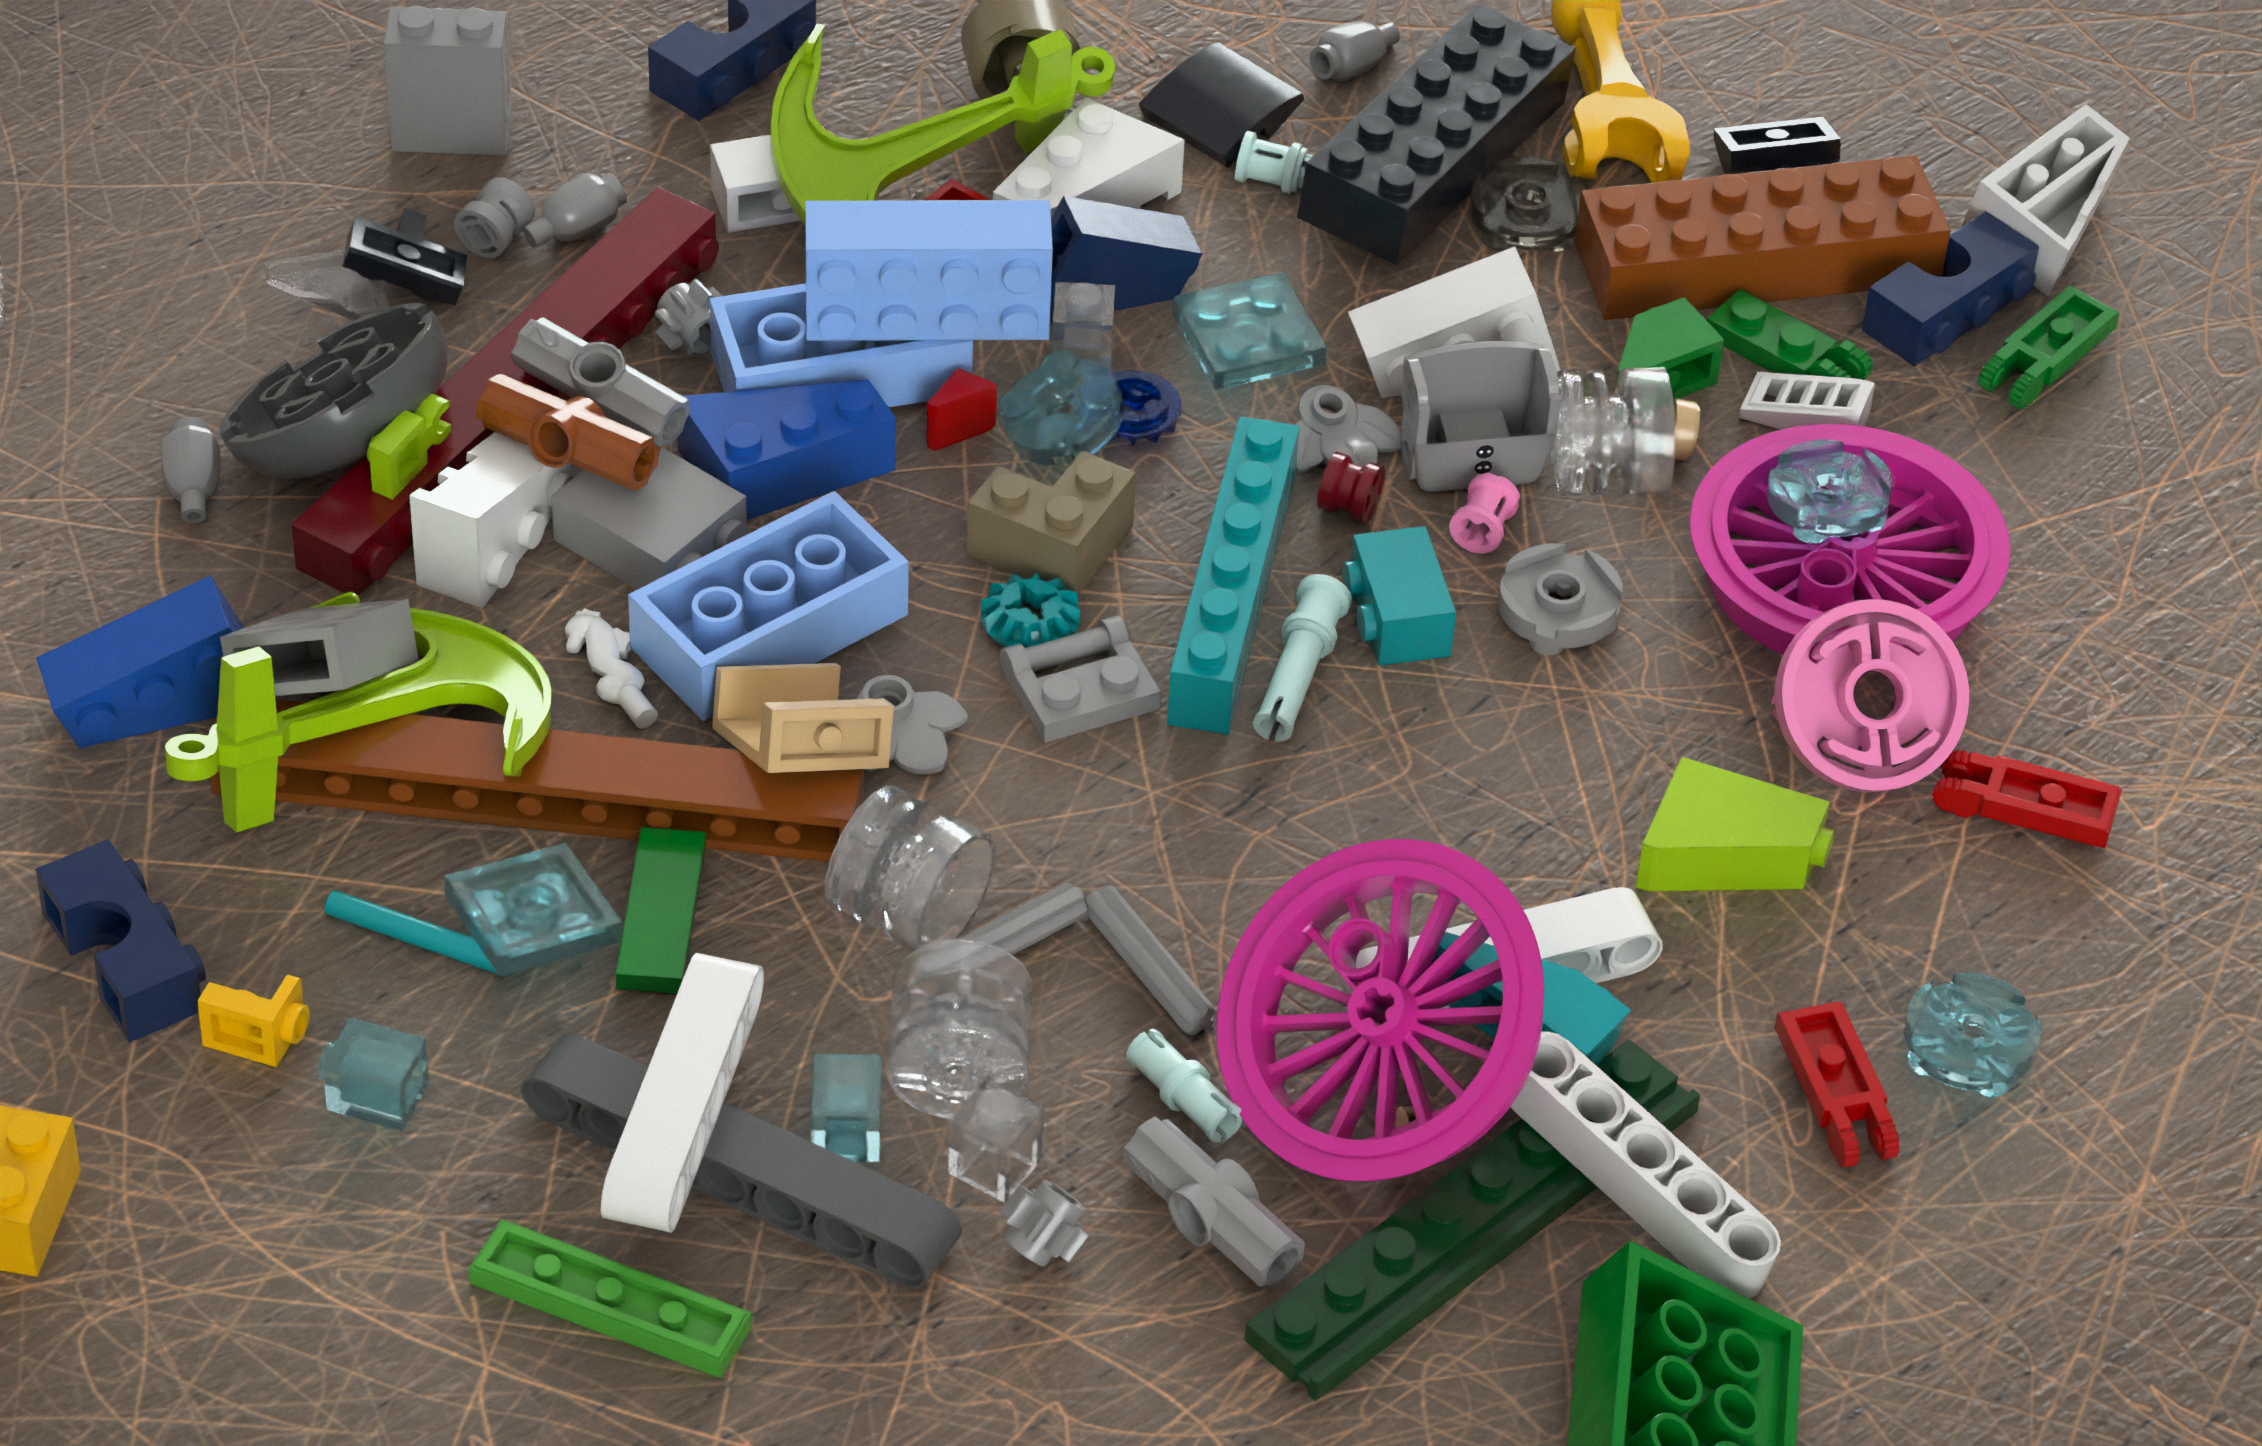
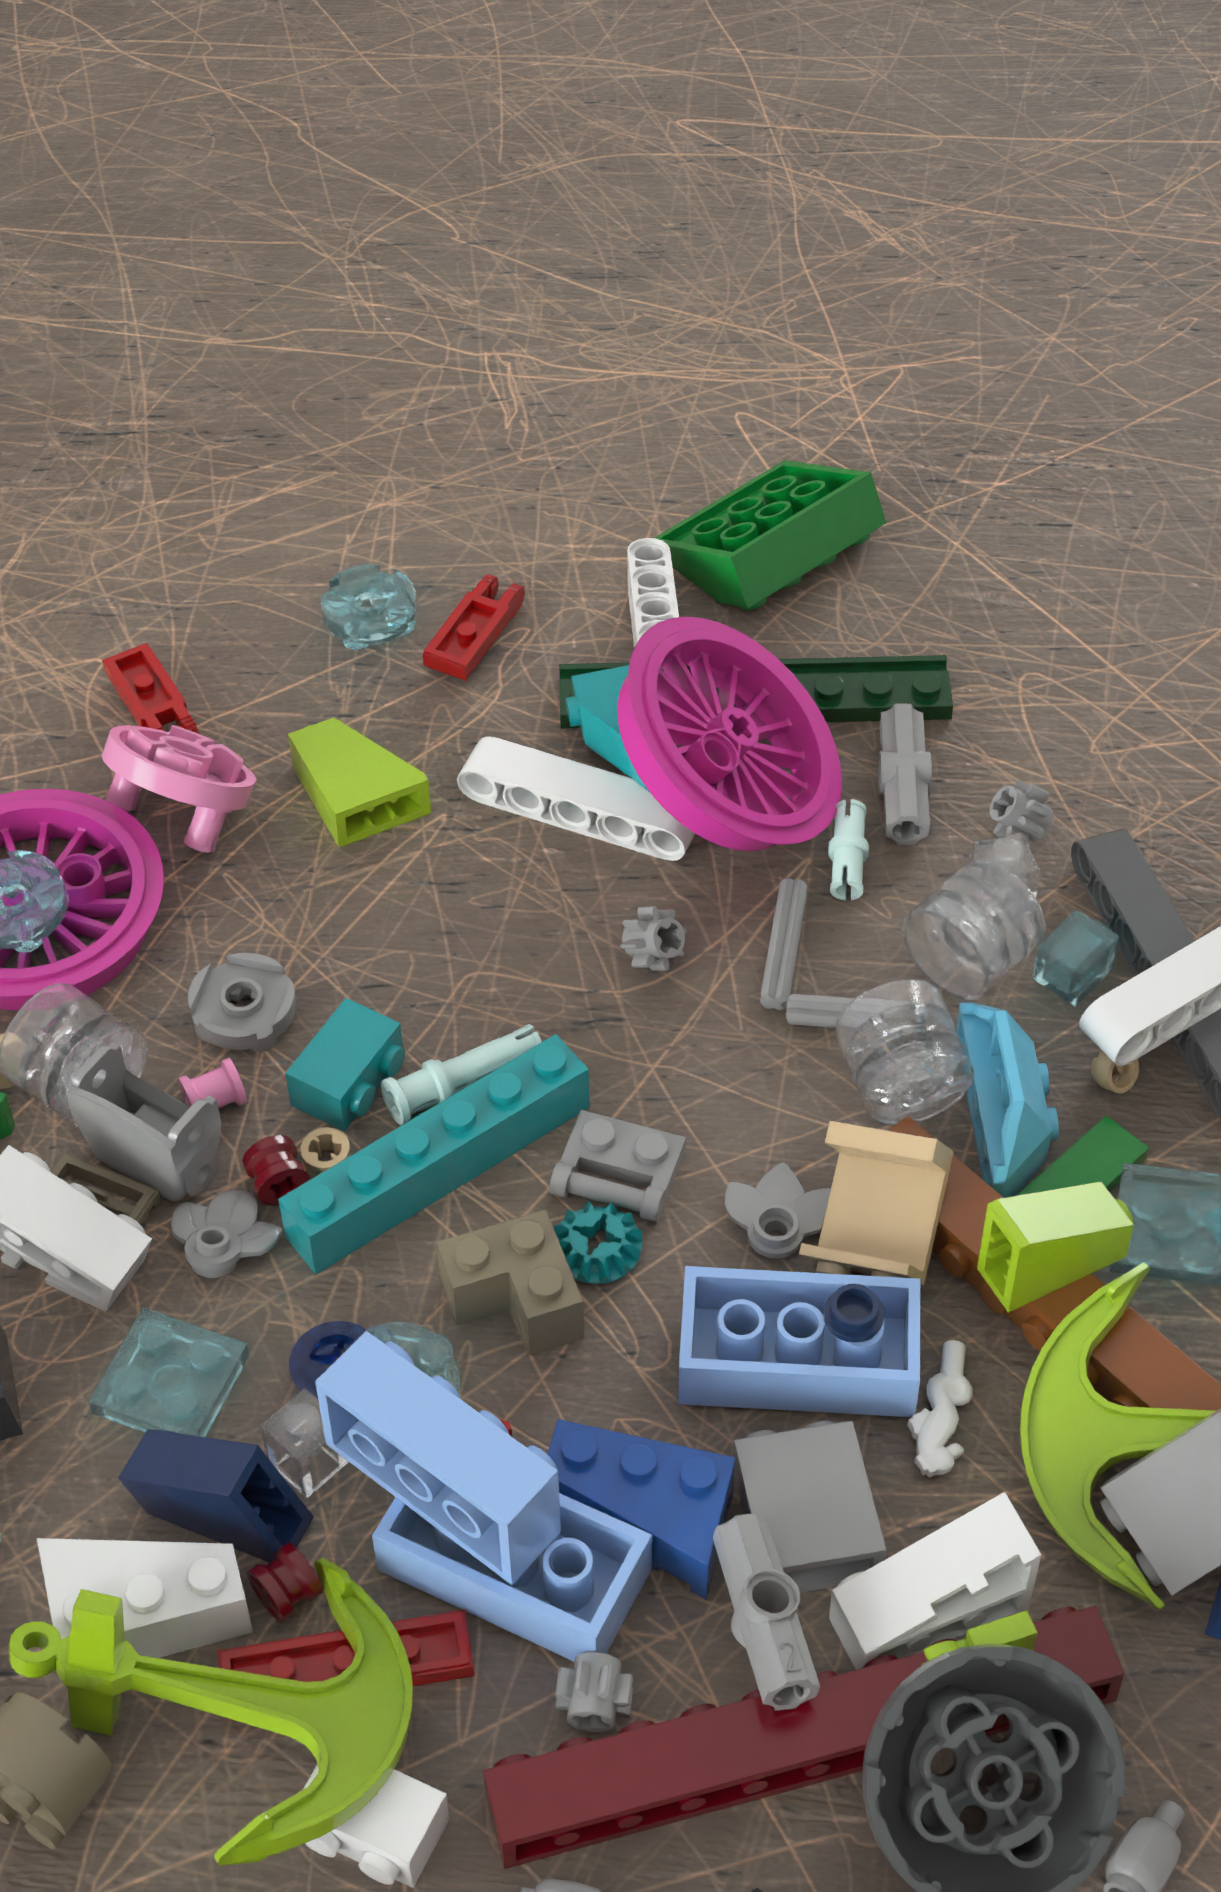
camera: 135 degrees left, 5 degrees up
(567, 432) = (841, 1567): dark orange piece -> none
(607, 731) = (1051, 1240): none -> lime slope
(725, 587) = (854, 1313): none -> dark blue plate
(793, 919) = (1006, 1098): none -> medium azure wedge
(1263, 859) = (653, 938): none -> light grey gear
(1338, 527) = (321, 1140): none -> tan bush

